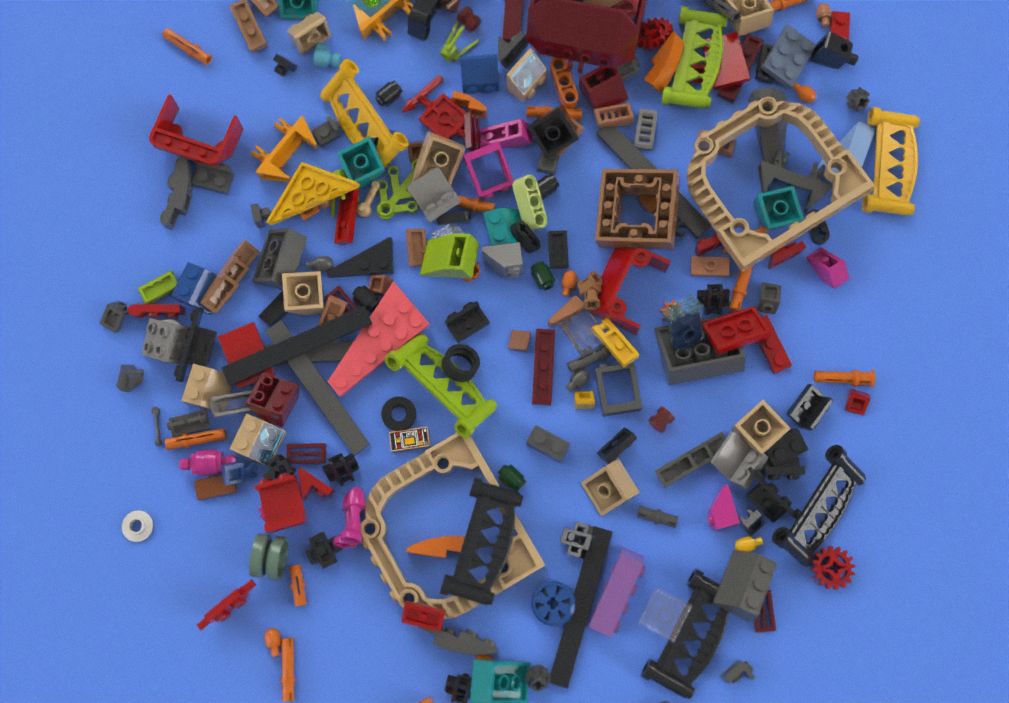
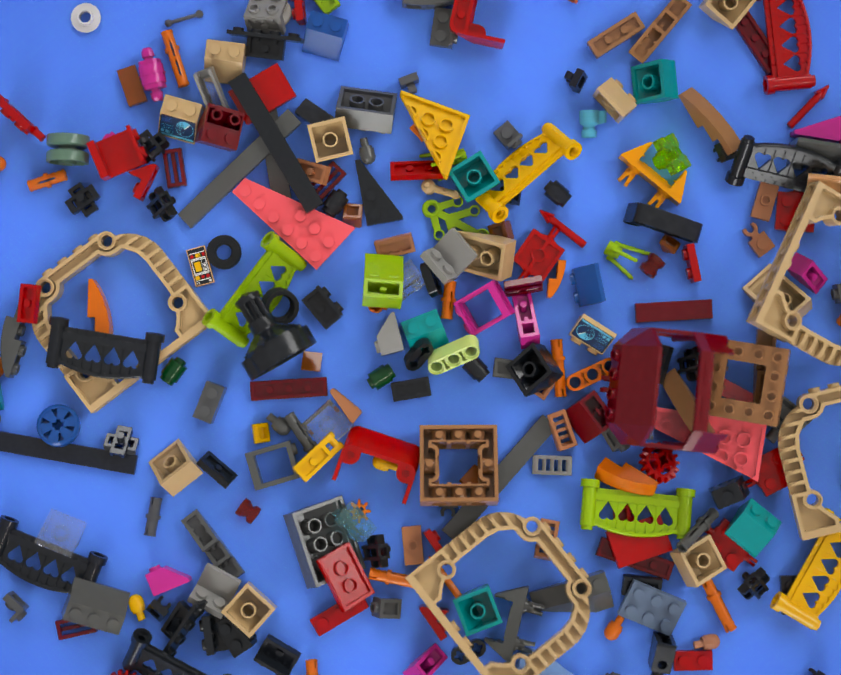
camera: 80 degrees right, 10 degrees up
(189, 423) = (190, 48): dark grey hinge -> none
(229, 276) = (339, 62): medium nougat slope -> none
(236, 472) = (146, 104): blue plate -> none
(273, 162) = (497, 103): light orange hose -> none
(352, 506) = (128, 221): dark pink piece -> none
(496, 367) = (272, 341): none -> black piece
(509, 52) = (619, 311): dark grey slope -> none
(568, 282) = (378, 404): orange cylinder -> none
(589, 289) = (369, 426): medium nougat connector -> none
(617, 591) = (76, 485): medium lavender wedge -> none
(628, 283) = (384, 465): none -> yellow cylinder
(686, 331) = (334, 526): dark blue piece -> none

